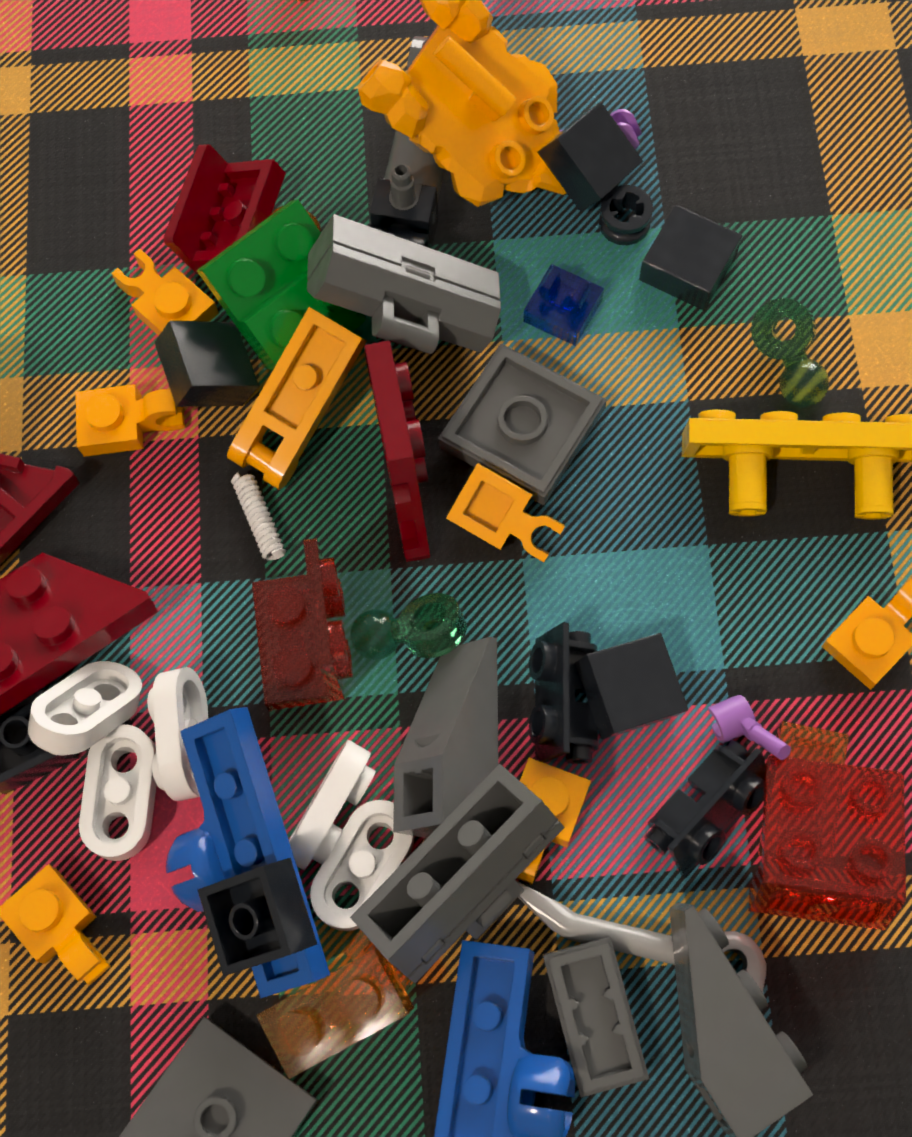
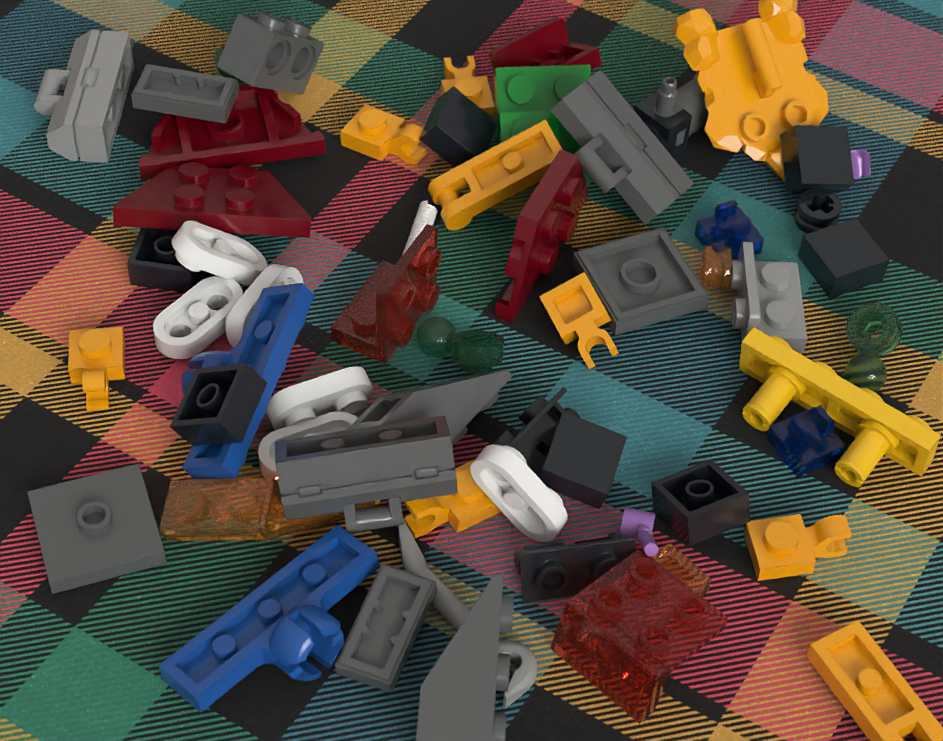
camera: 30 degrees right, 20 degrees down
(585, 357) = (716, 268): none -> clear orange bush
(621, 776) = (519, 492): none -> white plate
(660, 362) = (767, 298): none -> light grey bracket
(773, 651) = (700, 502): none -> black piece
(807, 502) = (806, 441): none -> clear blue tile

